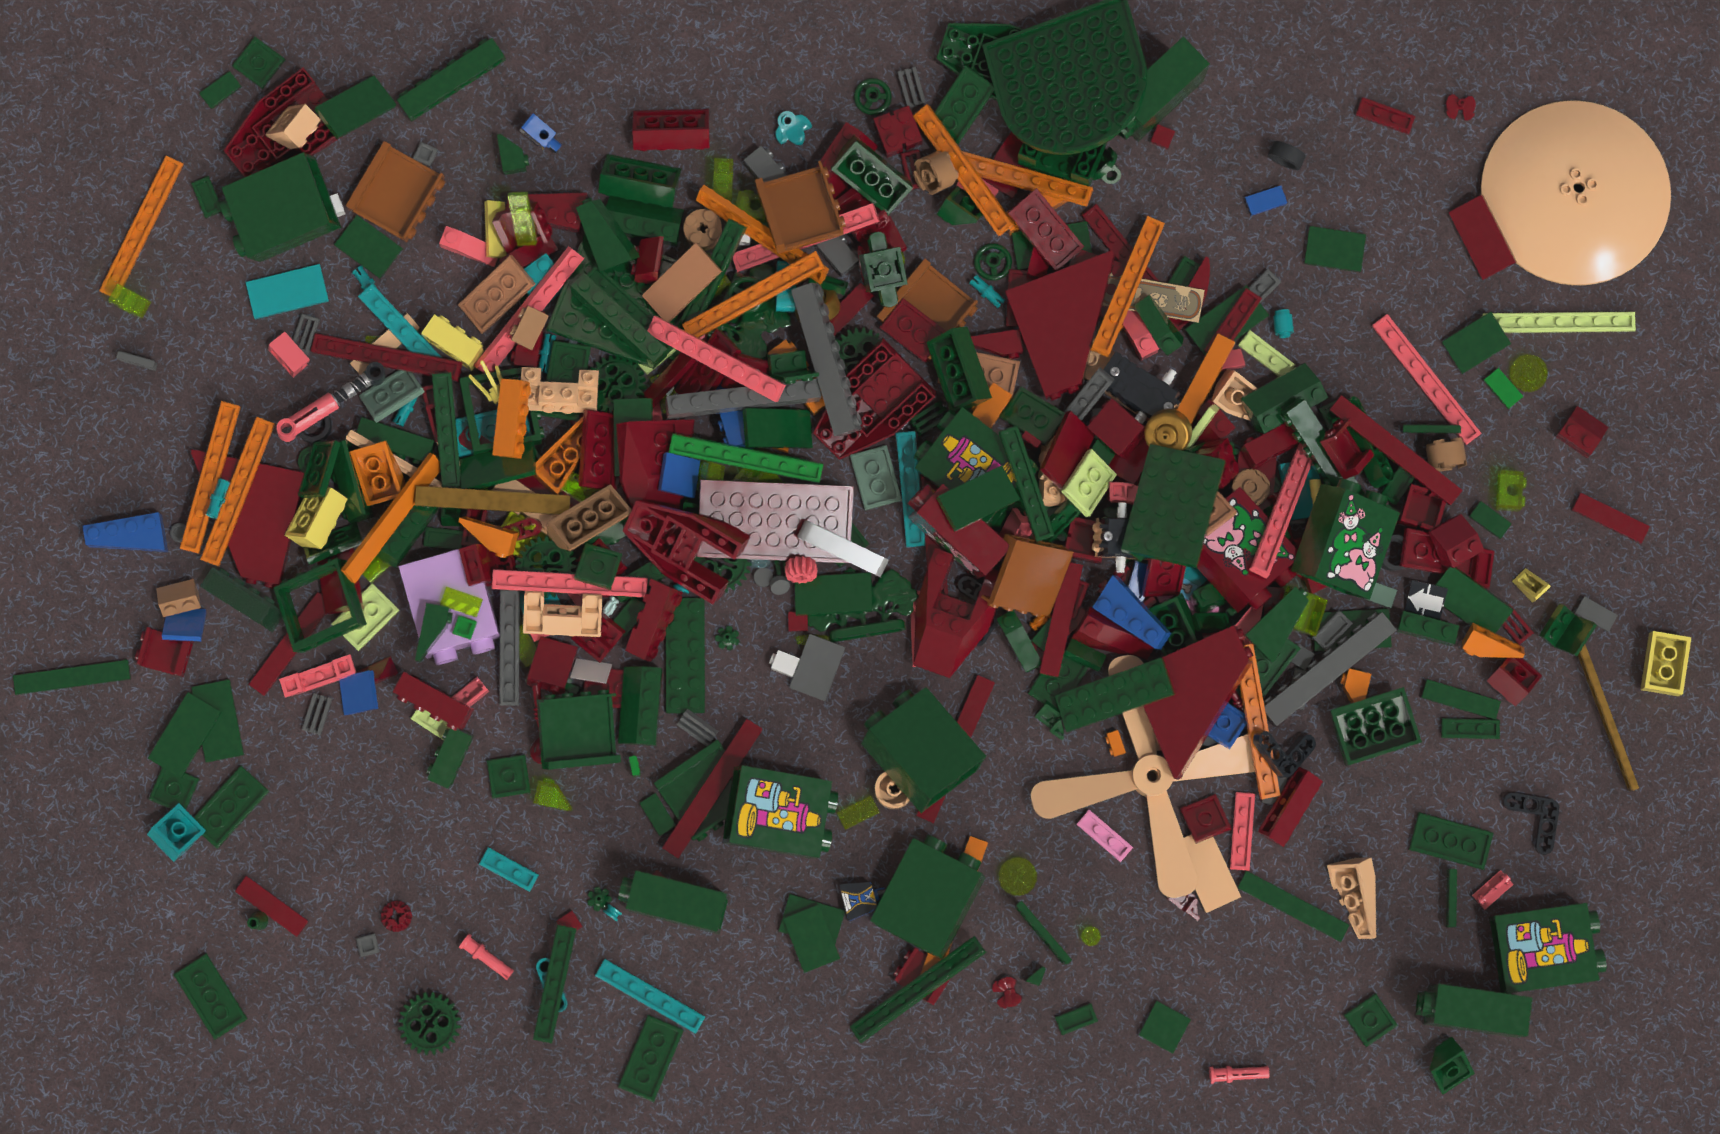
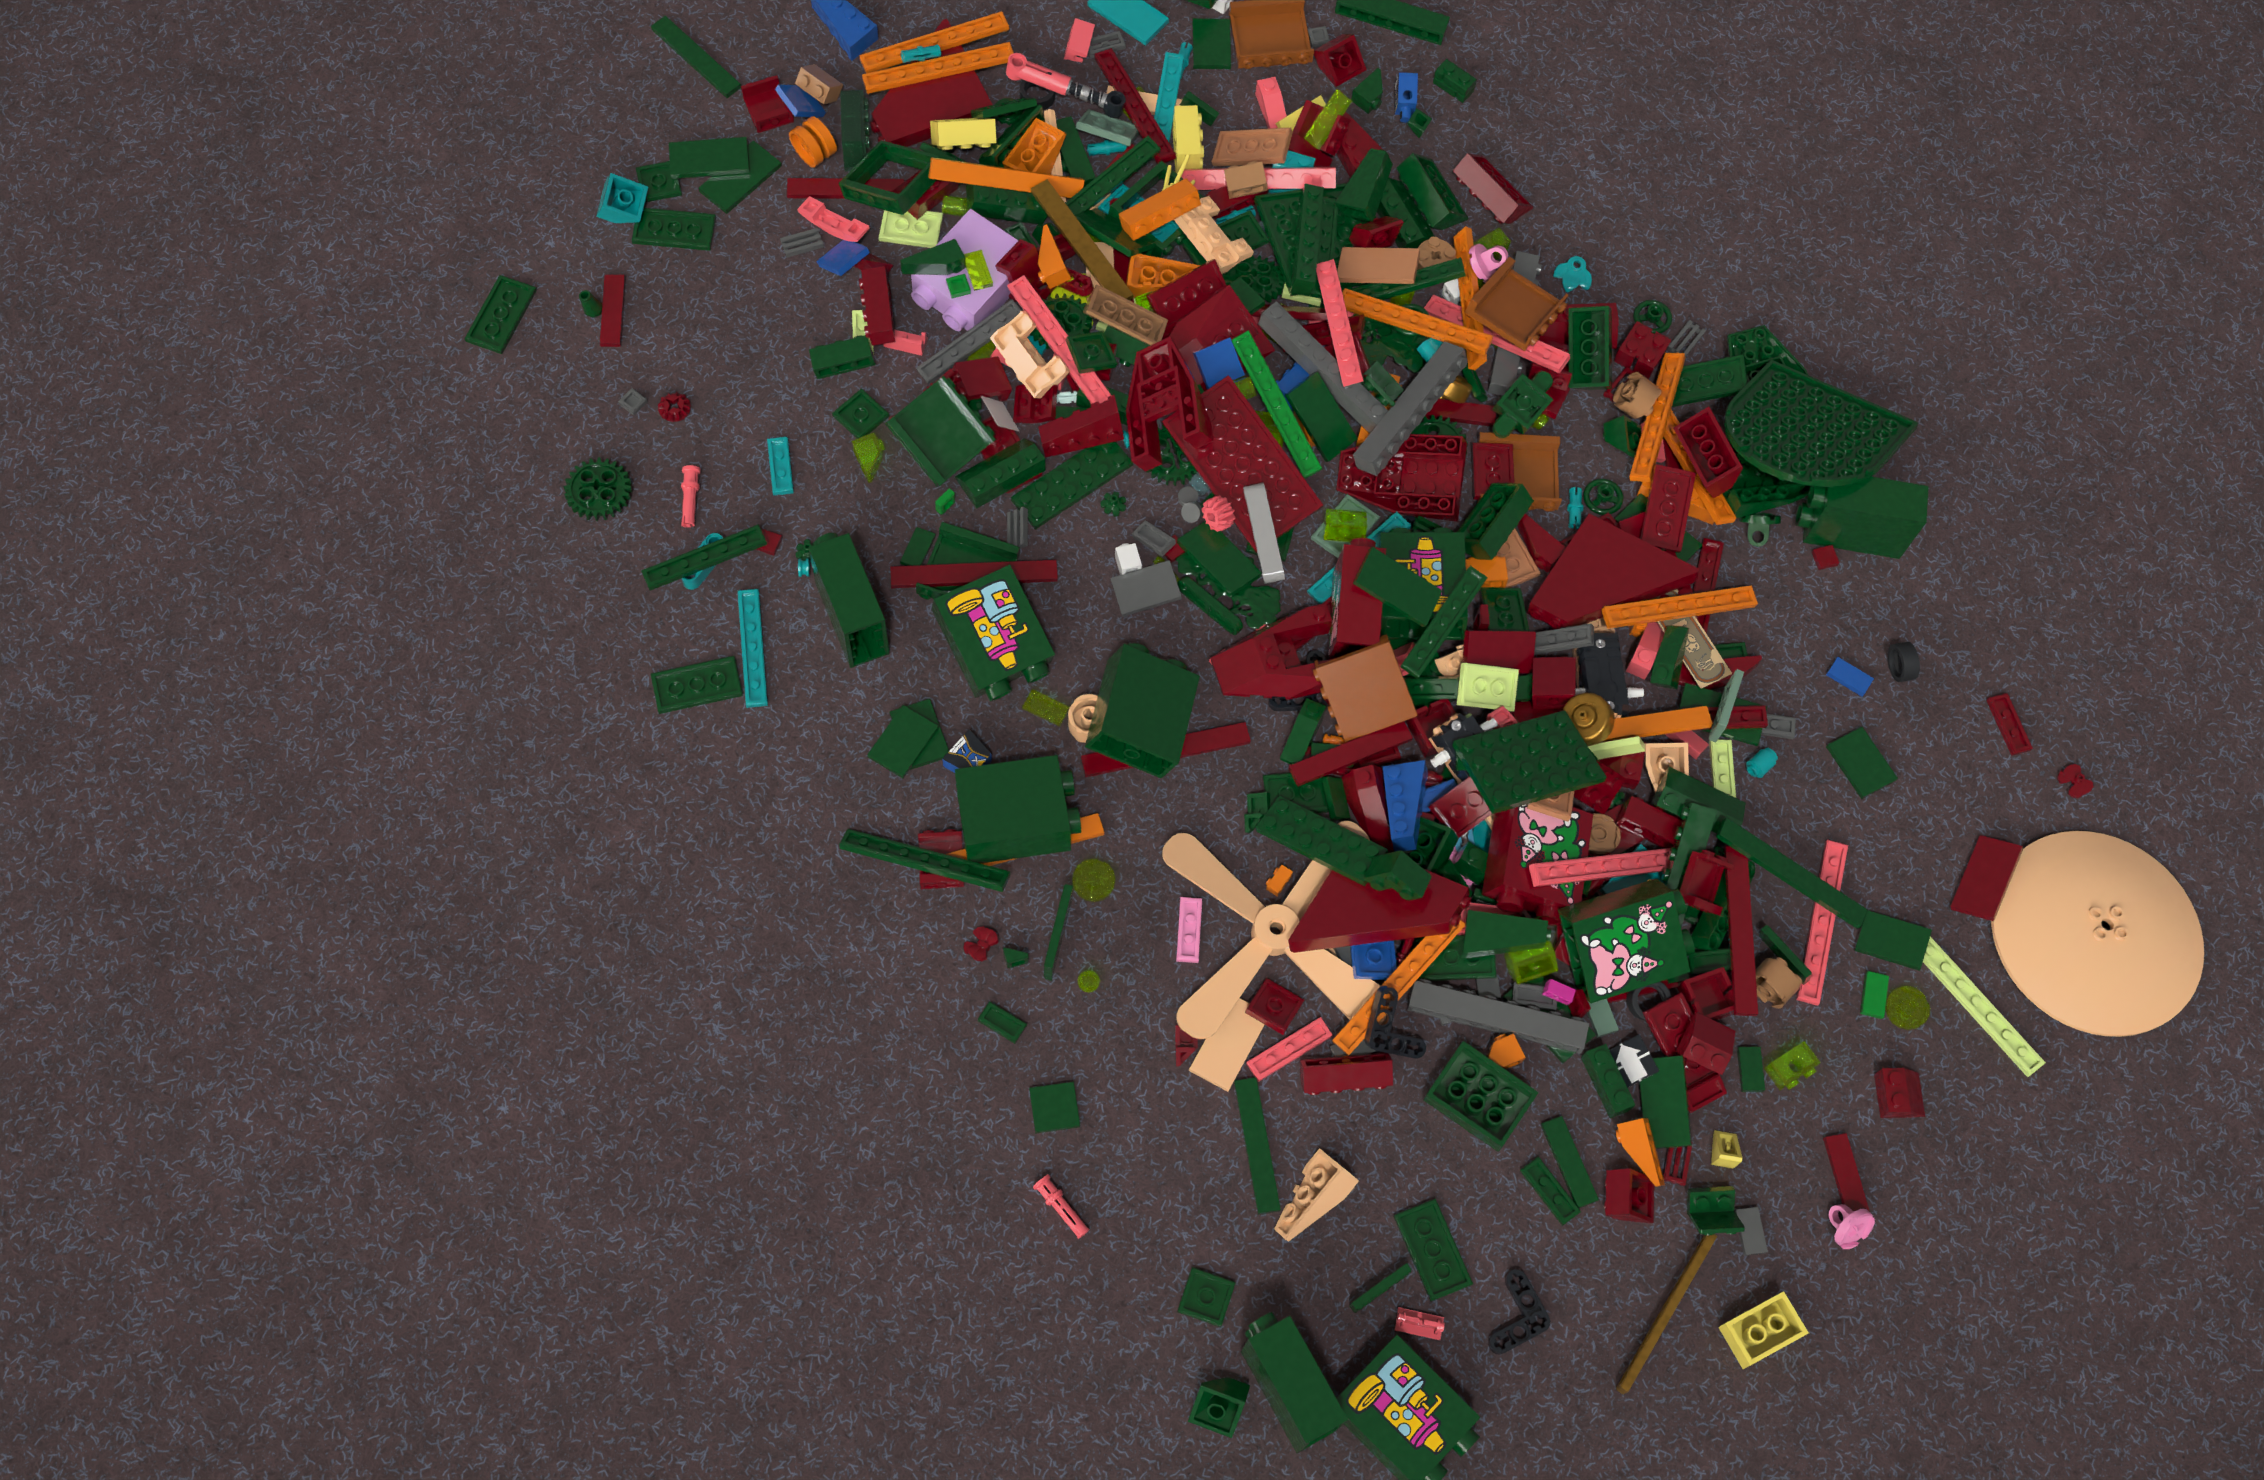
camera: 50 degrees right, 15 degrees down
(233, 643) = (813, 141): none -> orange wheel
(428, 307) = (1208, 113): none -> dark green tile
(462, 155) = (1340, 59): none -> dark red slope
(551, 80) = (1454, 80): none -> dark green brick
(569, 140) = (1418, 122): none -> dark green slope
(740, 199) = (1483, 261): none -> bright pink tile
(780, 630) = (1153, 538): none -> dark grey tile
(889, 479) = (1344, 525): none -> clear neon green brick
(1028, 167) = (1709, 451): none -> dark red slope
(1189, 669) = (1398, 872): none -> dark green brick
(1230, 322) = (1726, 705): none -> sand green tile
(1343, 613) = (1558, 992): none -> dark pink piece
(1361, 605) = (1579, 1005): none -> dark red tile
(1381, 377) = (1791, 873): none -> dark green tile
(1642, 545) = (1853, 1227): none -> bright pink tile

